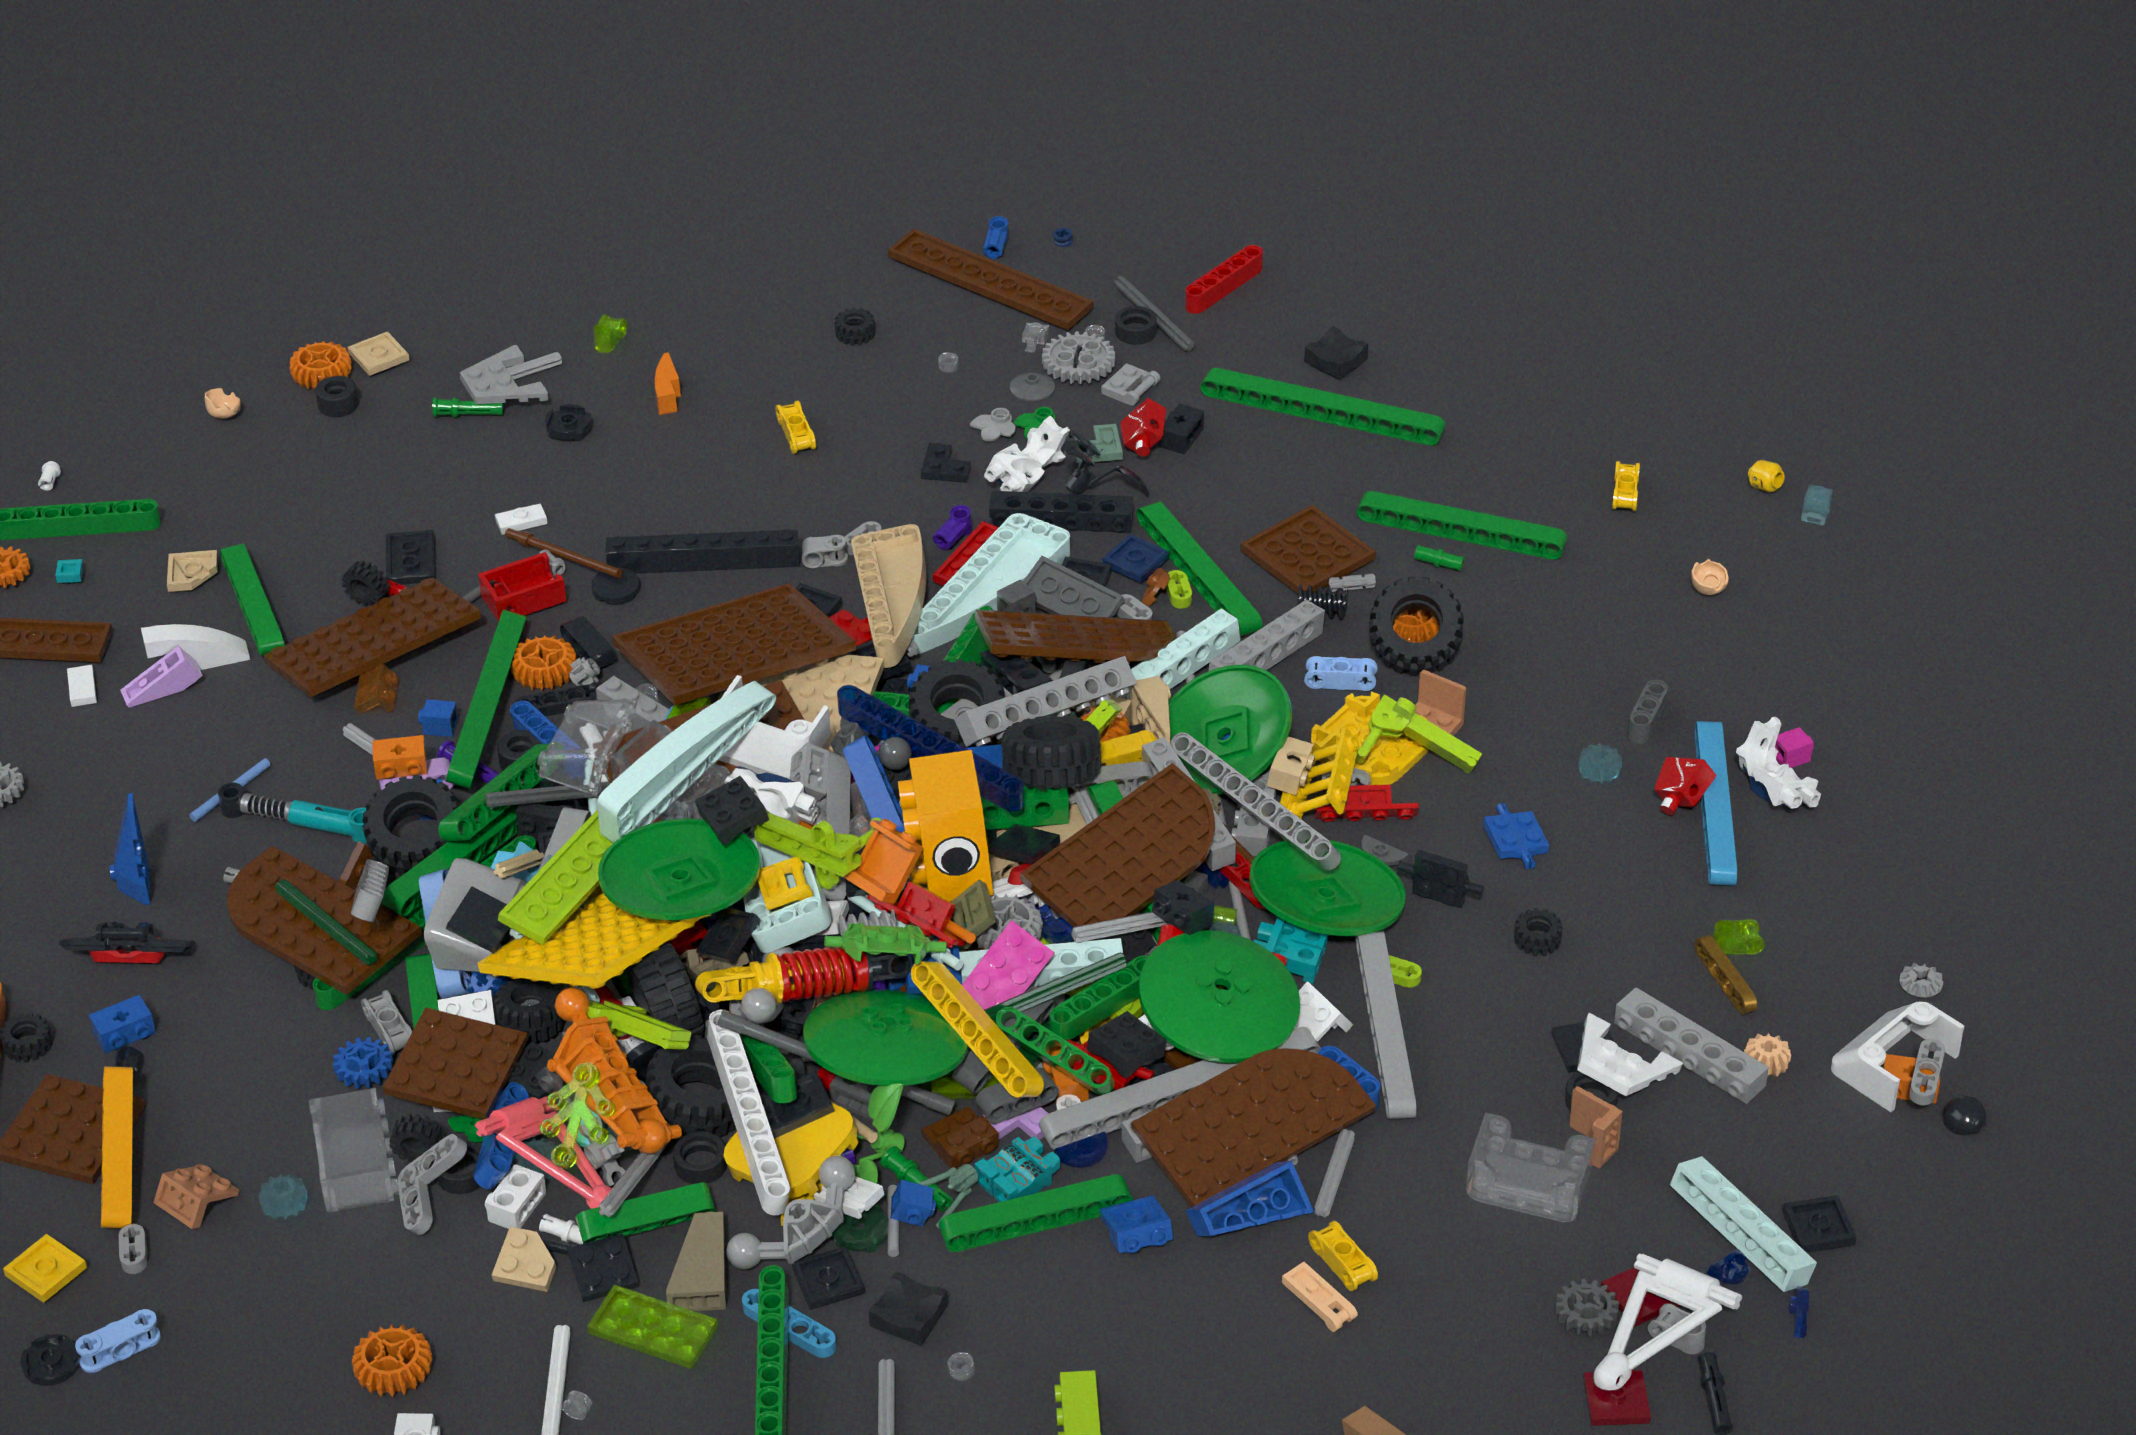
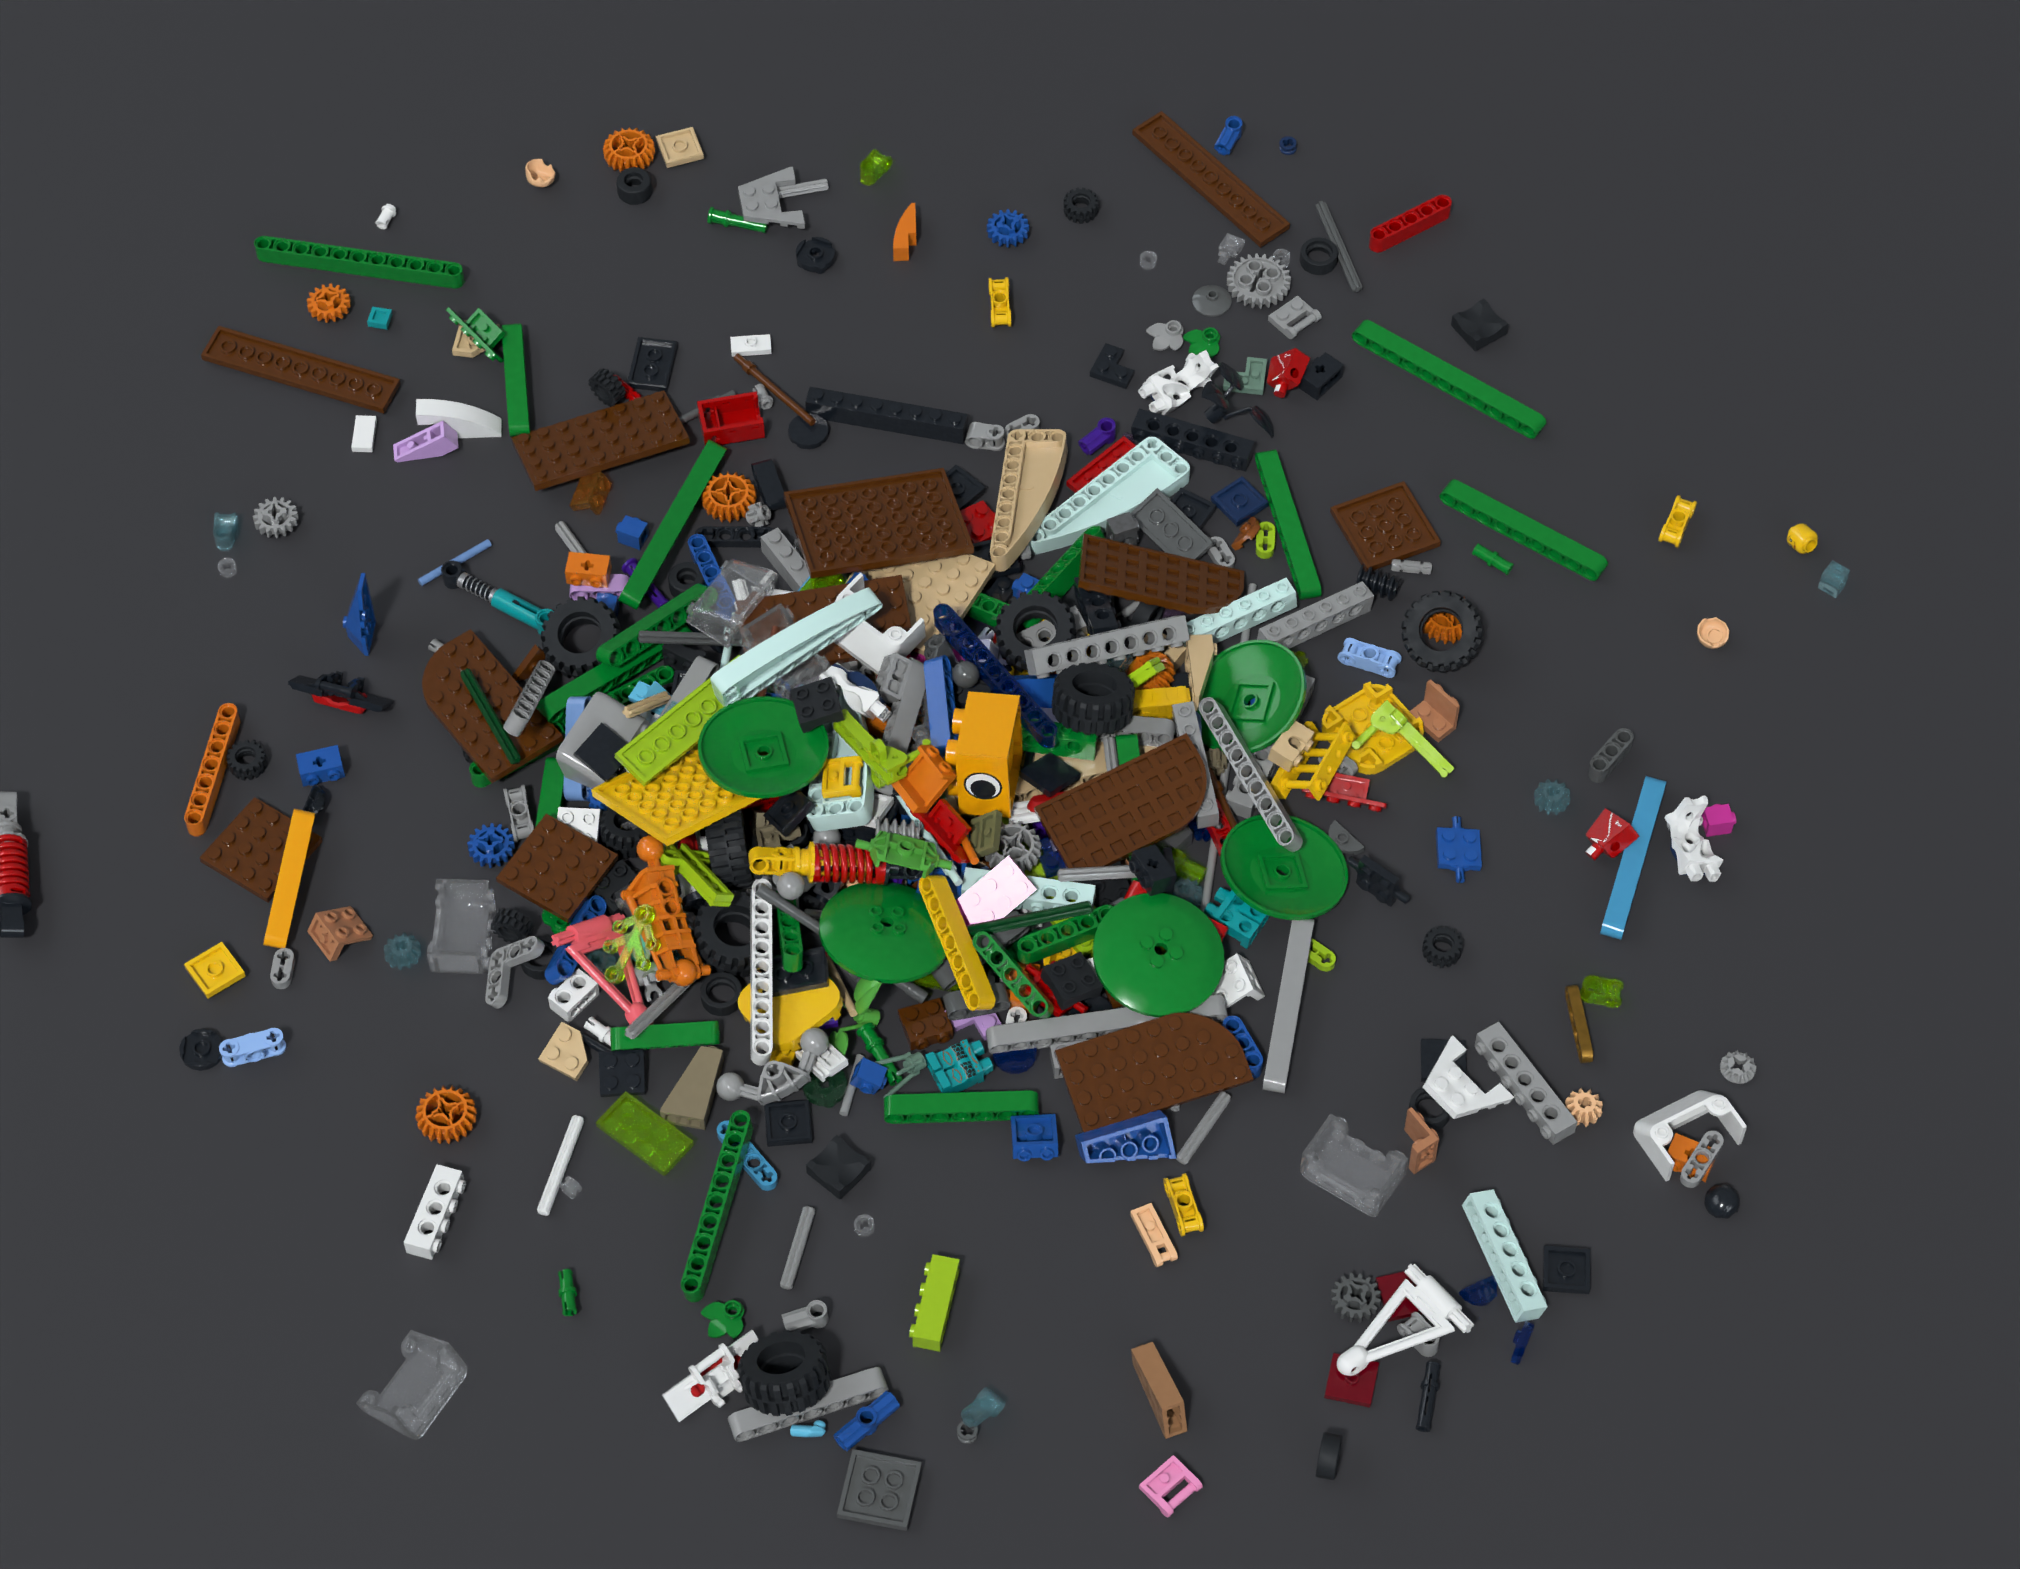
camera: 15 degrees right, 15 degrees up
(198, 554) = (482, 329): none -> green bracket
(780, 360) = (1007, 228): none -> blue gear

